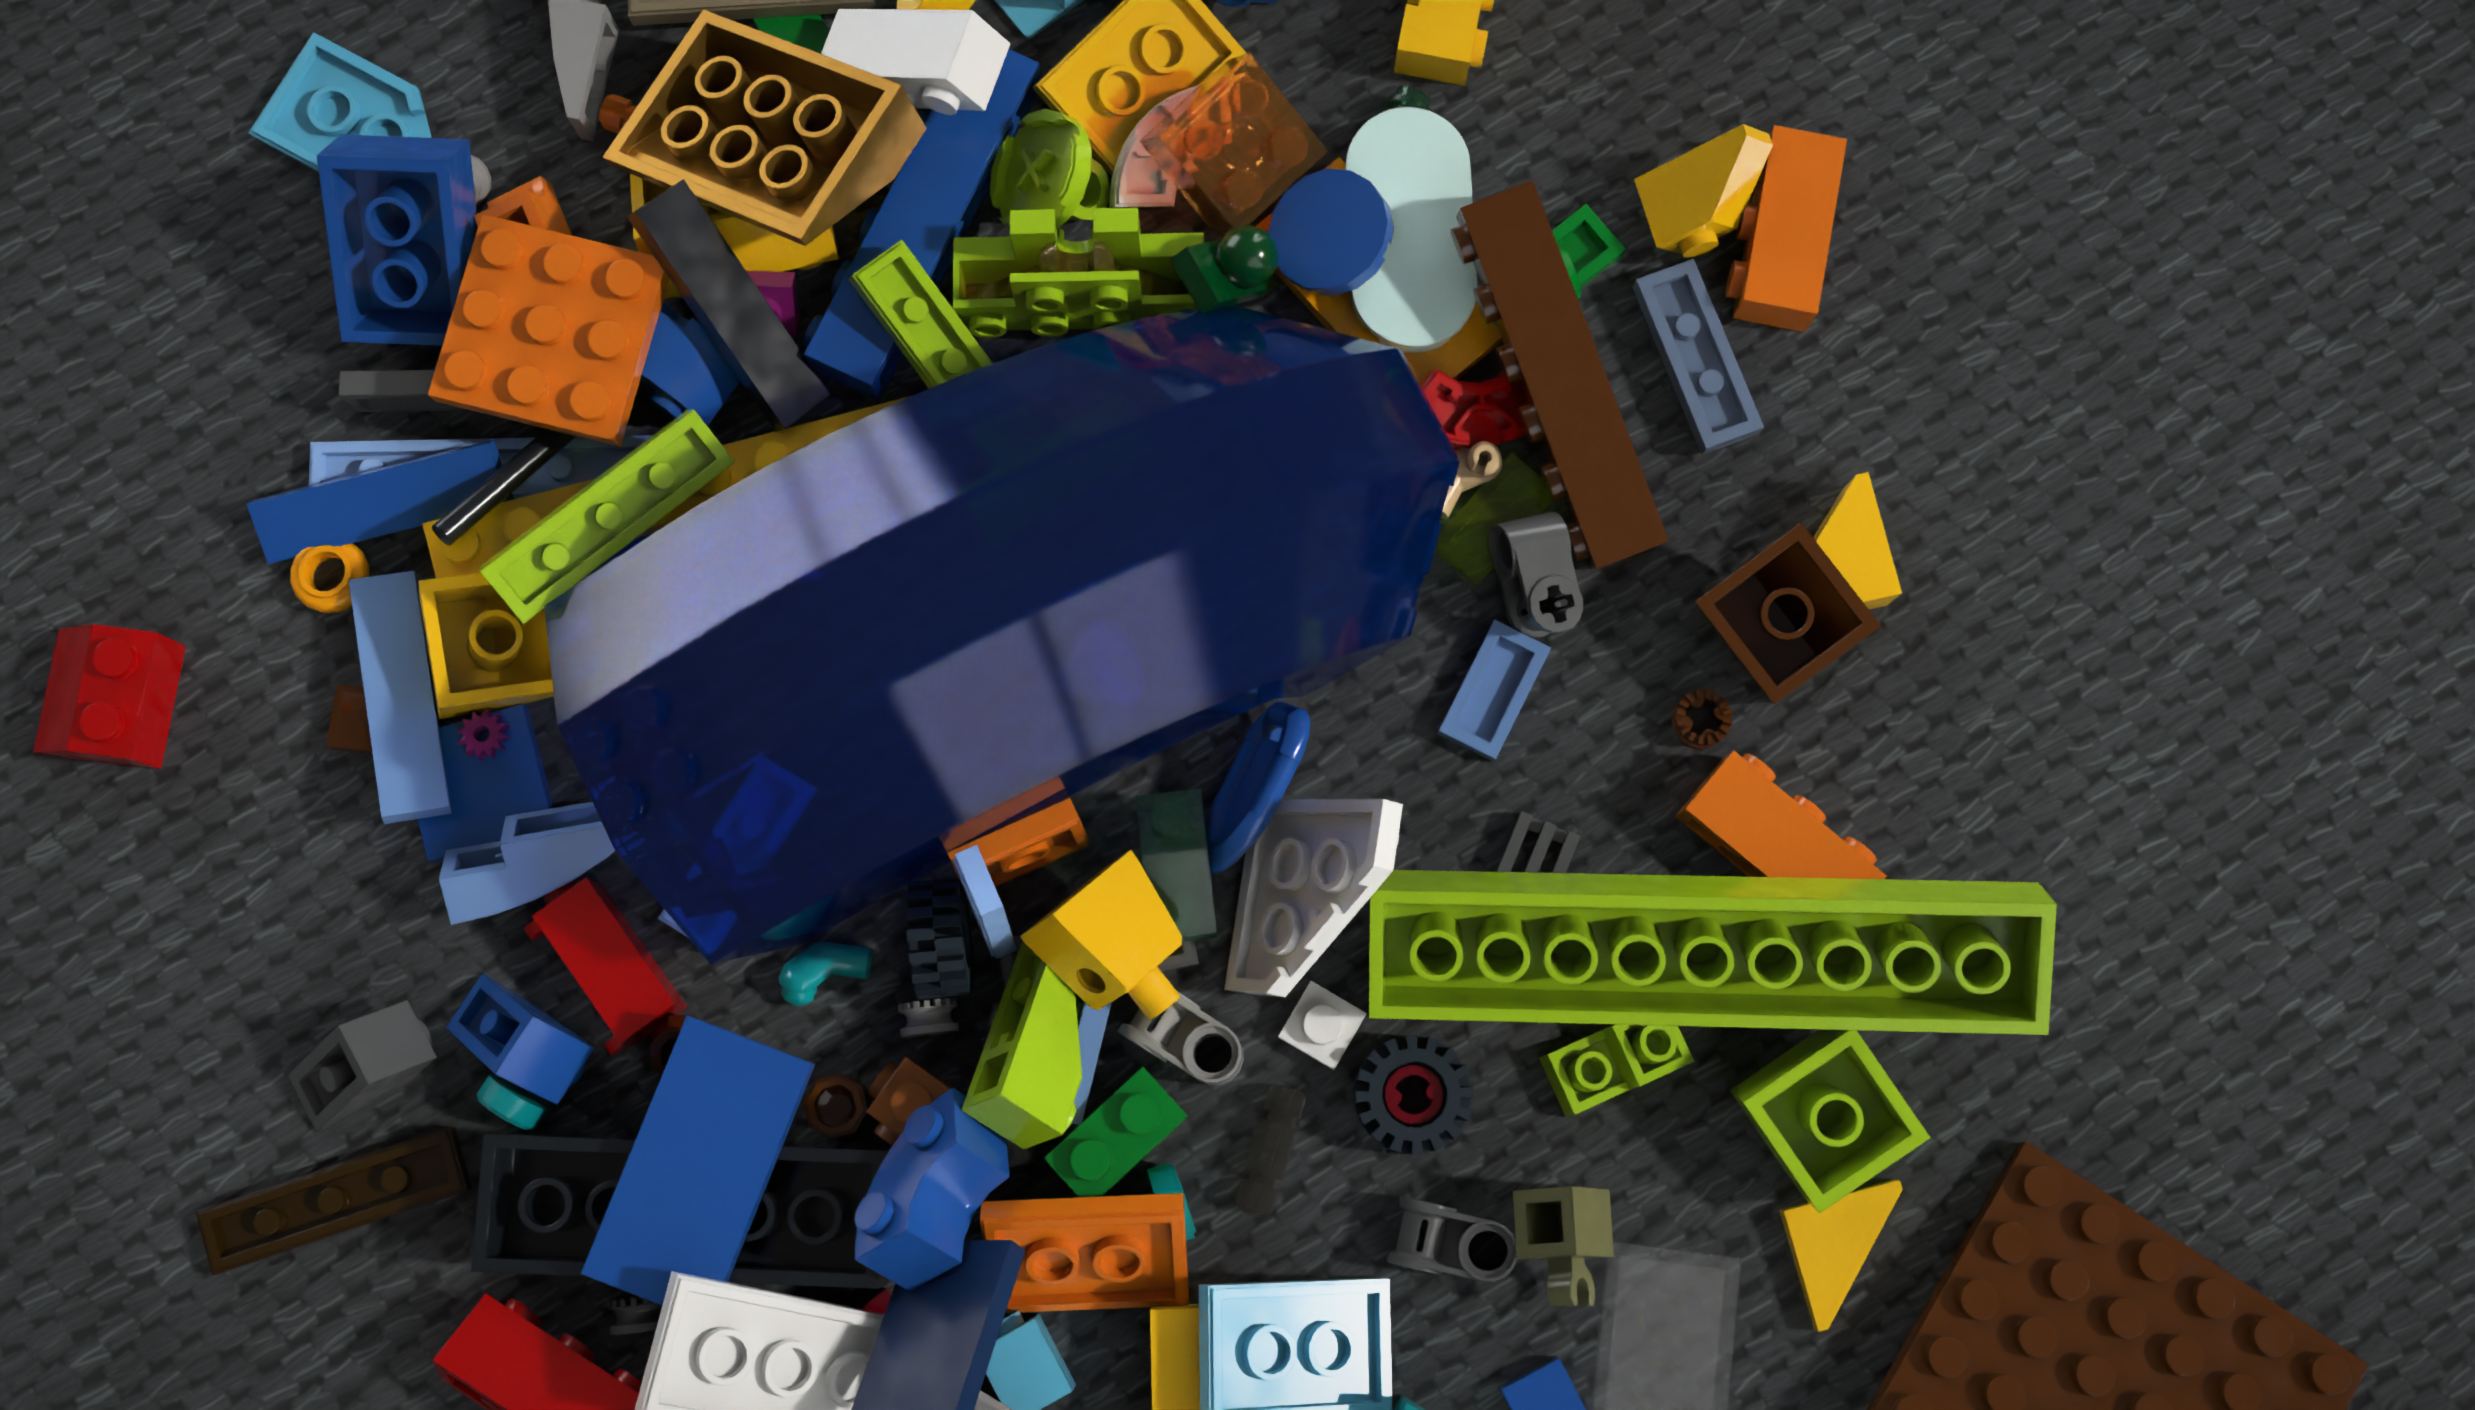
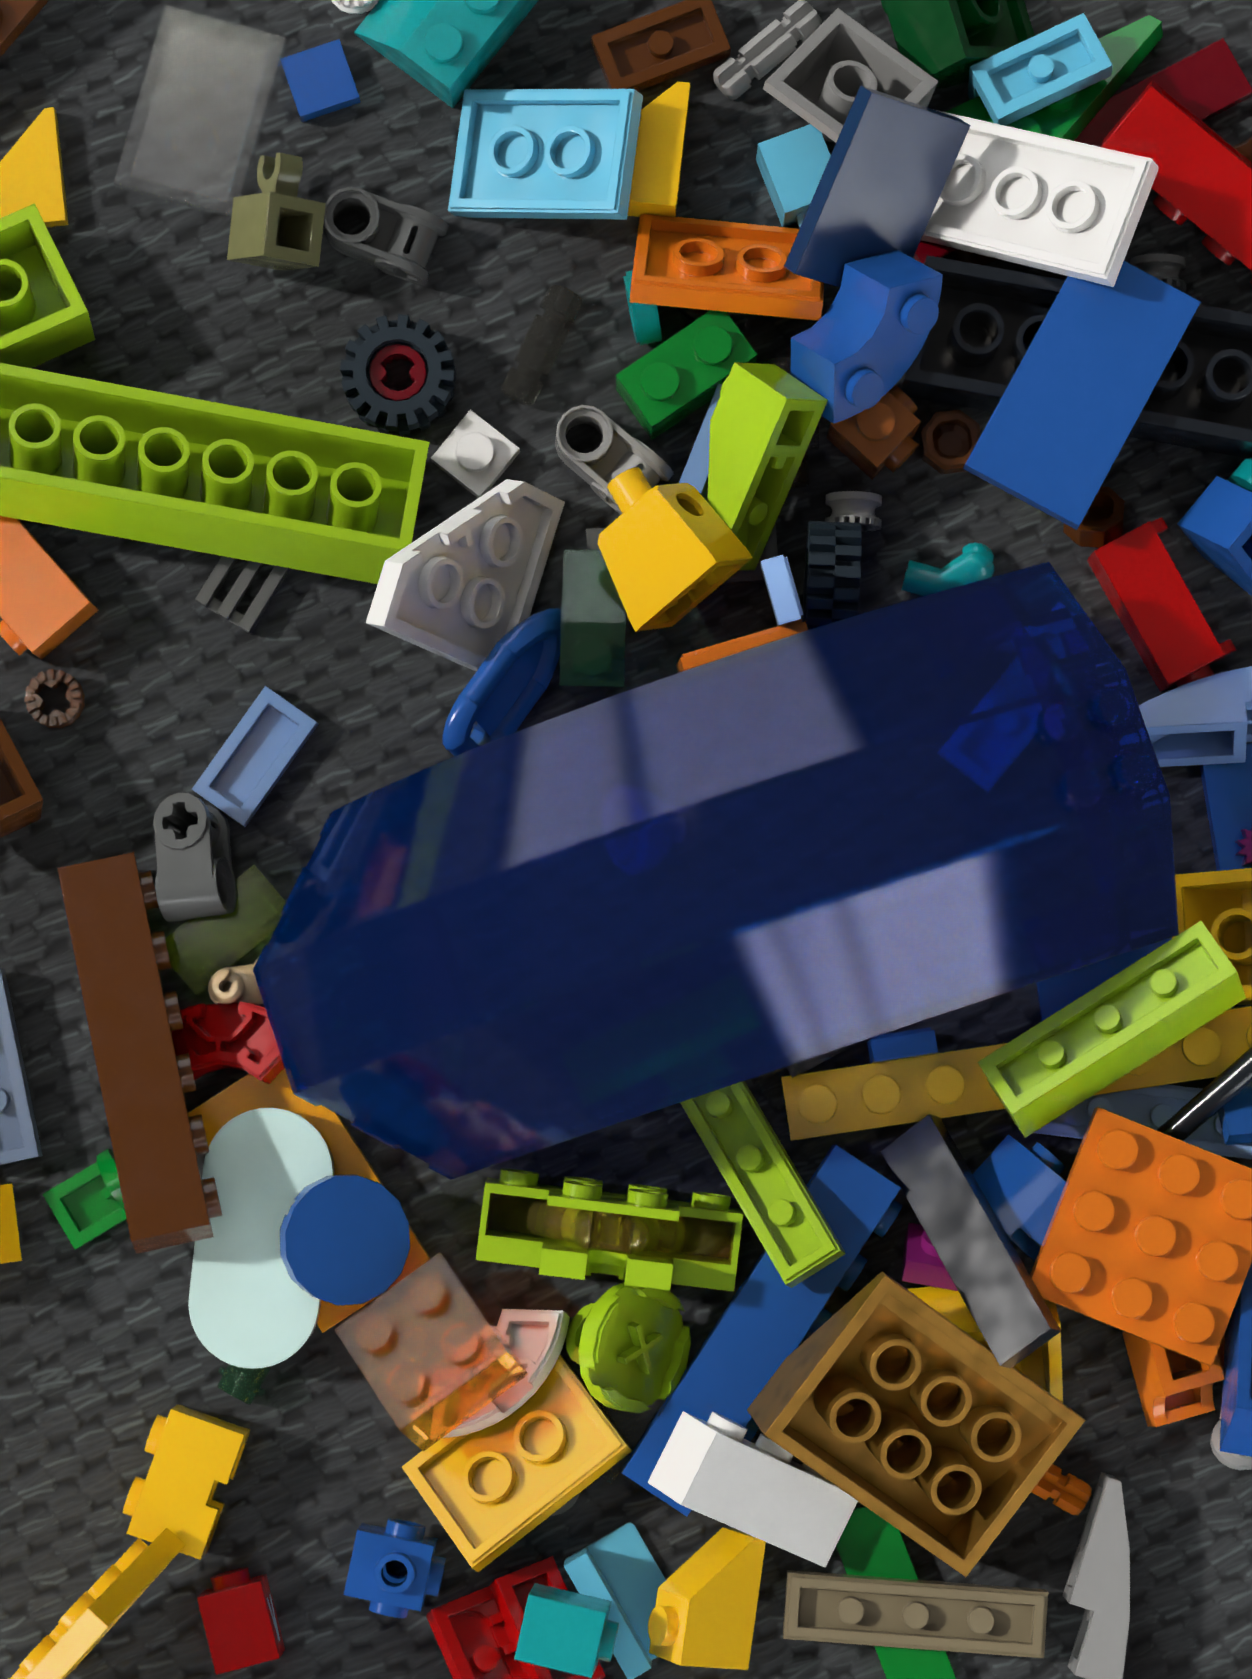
camera: 170 degrees left, 5 degrees up
(1229, 268) = (457, 1209): dark green tile -> none
(1613, 1063) = (220, 374): lime slope -> none

